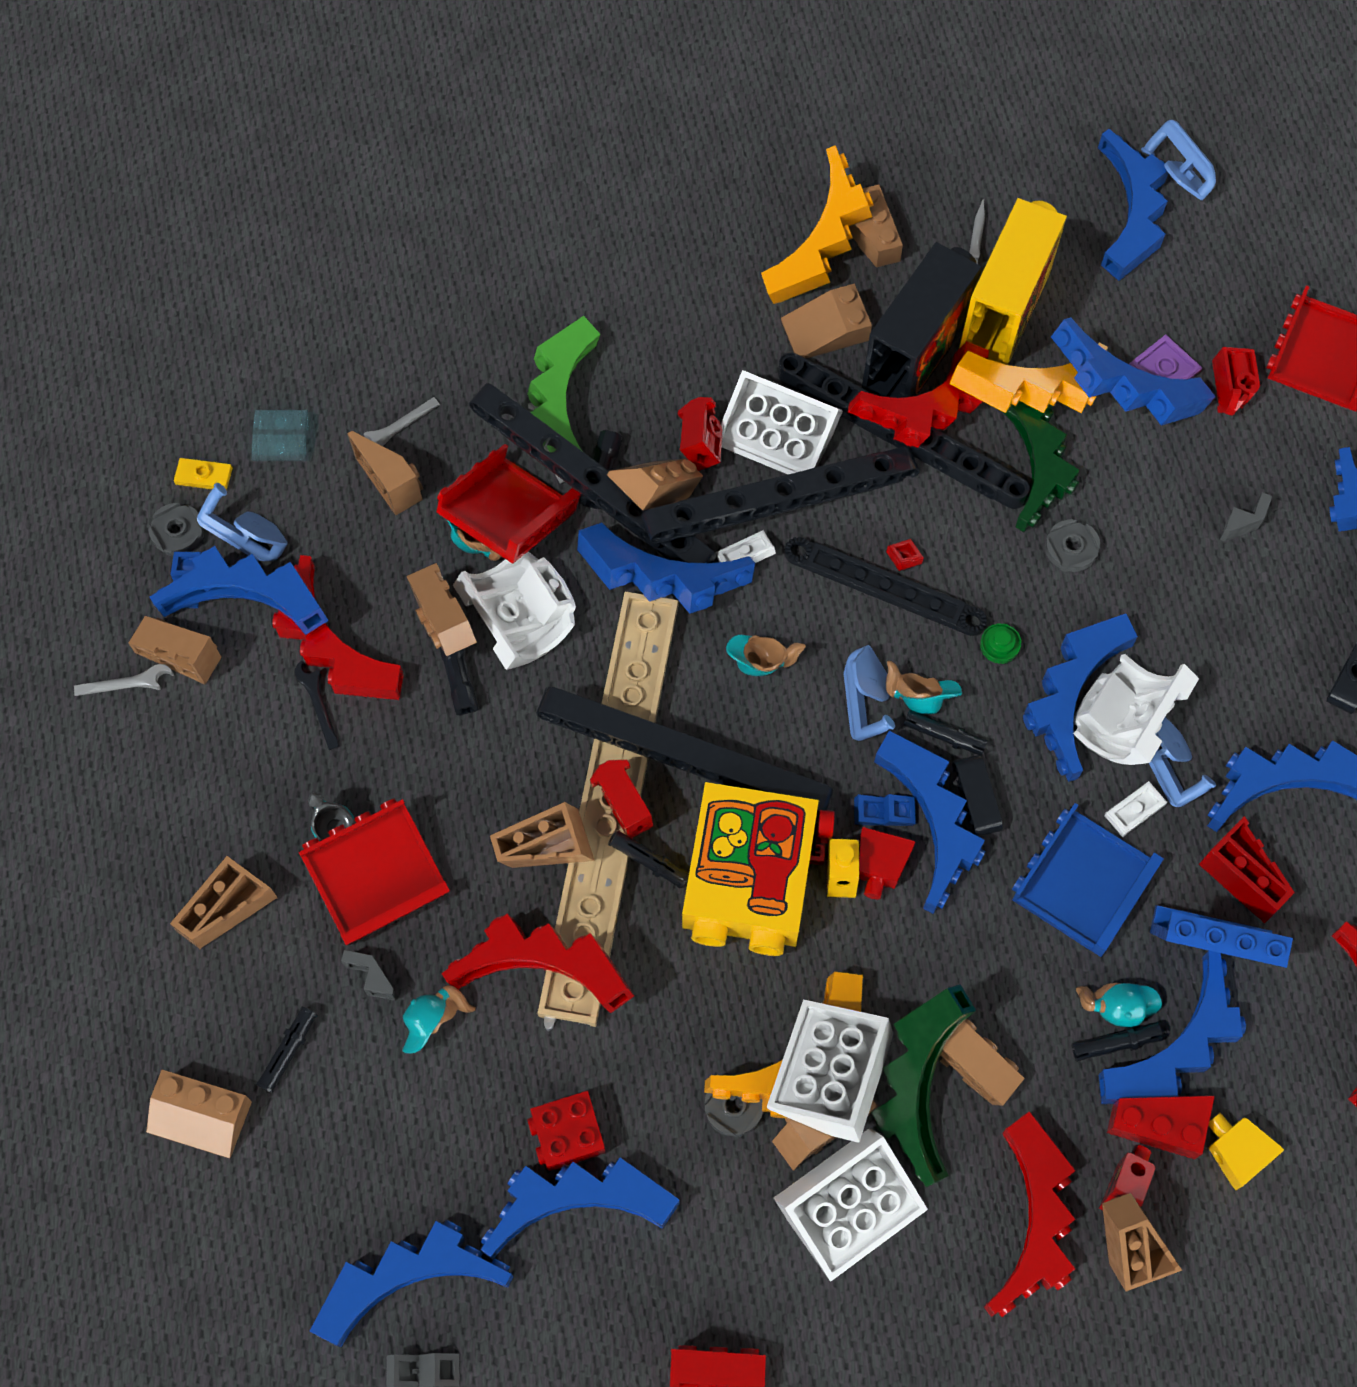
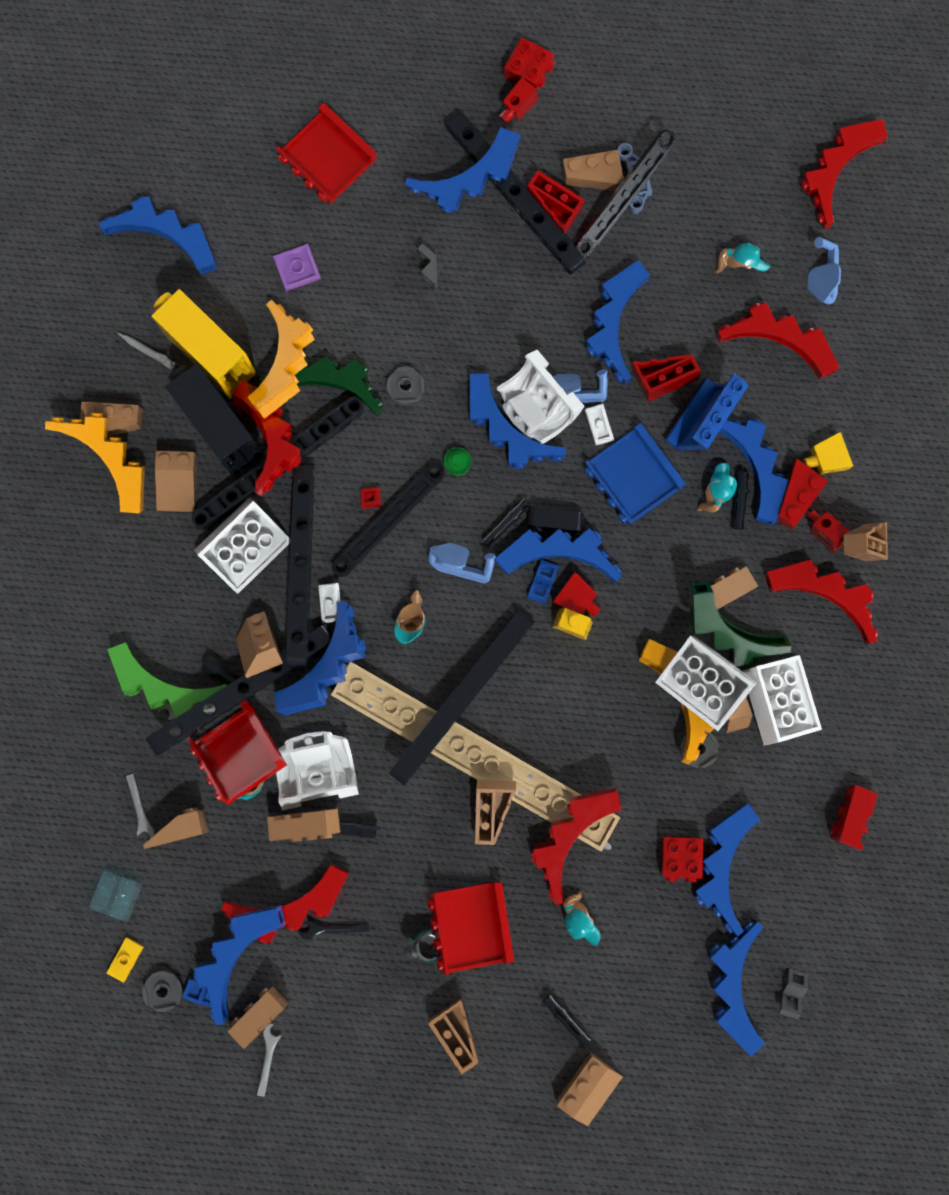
camera: 70 degrees left, 15 degrees up
(246, 527) = (188, 936): medium blue piece -> none
(376, 982) = (542, 947): dark grey slope -> none
(622, 797) = (480, 749): red piece -> none
(649, 859) = (510, 759): black pin -> none
(701, 433) = (231, 600): red piece -> none
(749, 868) = (556, 683): brick -> none
(824, 833) = (547, 625): red piece -> none
(919, 693) = (474, 526): hair -> none
(1131, 387) = (312, 300): blue arch -> none
(1180, 171) = (152, 180): medium blue piece -> none
(1235, 378) = (326, 226): red piece -> none

